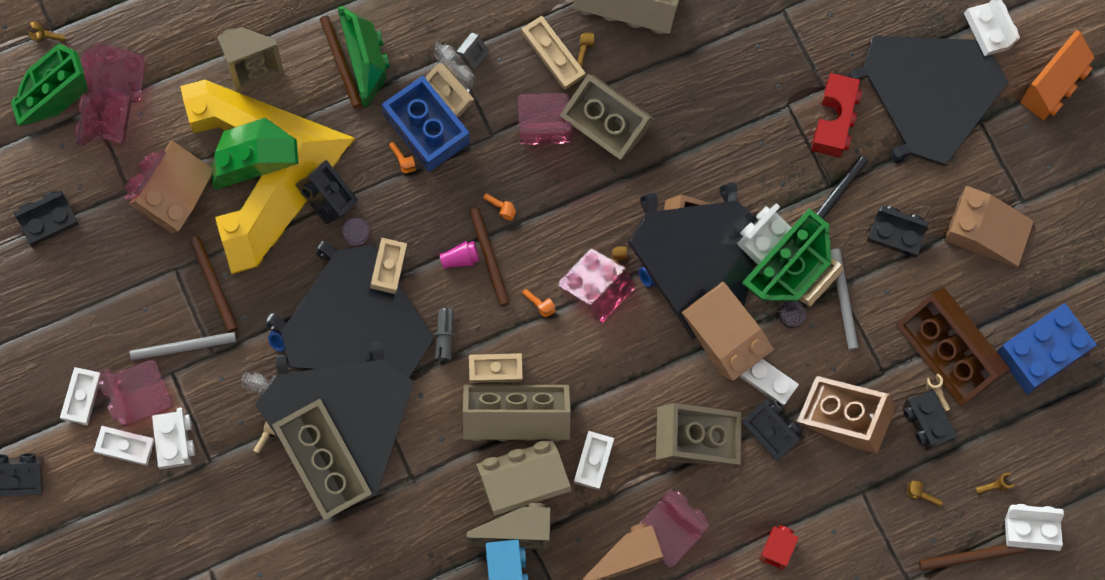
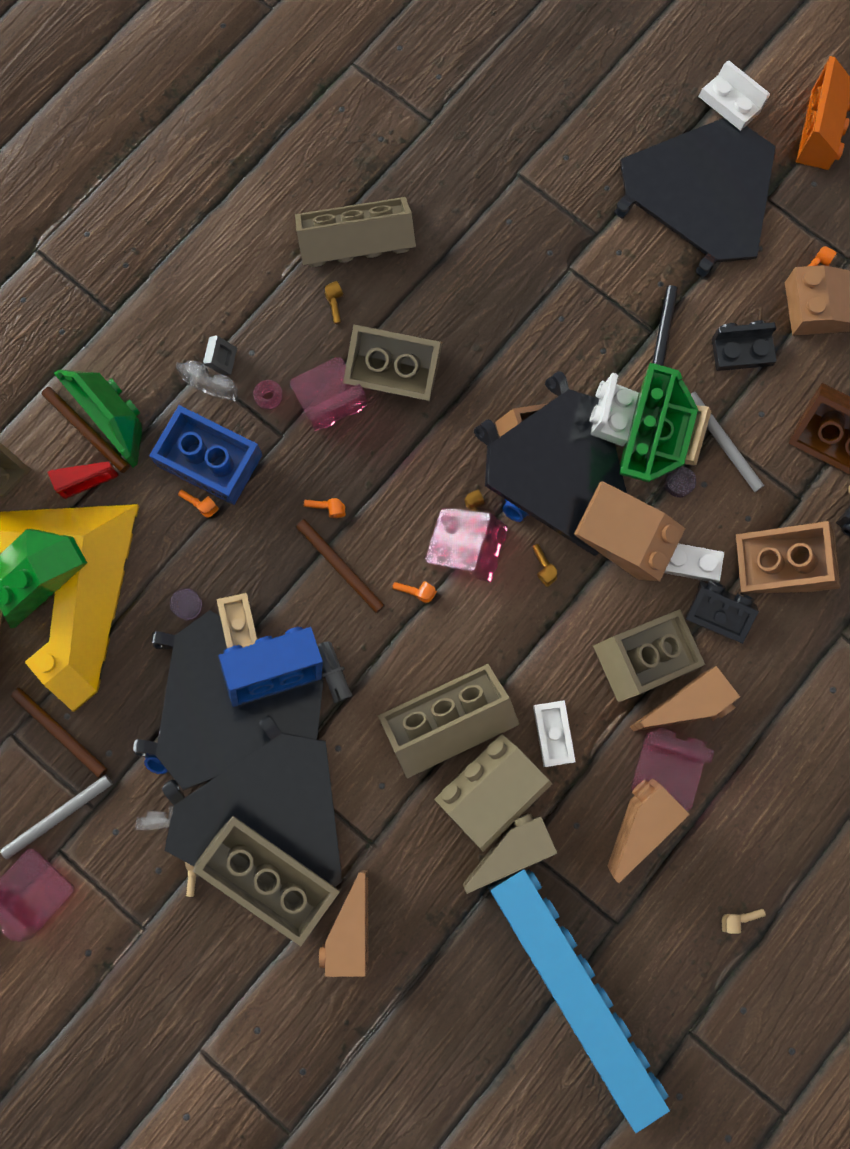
camera: 20 degrees left, 5 degrees up
(124, 445) = (41, 960): white plate -> none
(172, 439) = (92, 926): white bracket -> none
(317, 97) = (77, 479): none -> red slope
(326, 192) = (134, 577): black bracket -> none
(364, 529) = (348, 941): none -> medium nougat slope
(399, 305) = (271, 665): none -> blue brick
(449, 89) = (214, 407): tan plate -> none
(461, 255) = (310, 578): dark pink cone -> none
(495, 368) = (403, 682): tan plate -> none
(496, 91) = (264, 387): none -> clear pink plate
(553, 52) = (304, 320): tan plate -> none
(650, 338) = (549, 572): none -> pearl gold hand
(709, 484) = (702, 698): none -> medium nougat slope
(779, 547) = (790, 735): red brick -> none
(841, 95) = (621, 233): red arch -> none
(1002, 188) = (824, 256): none -> orange hand

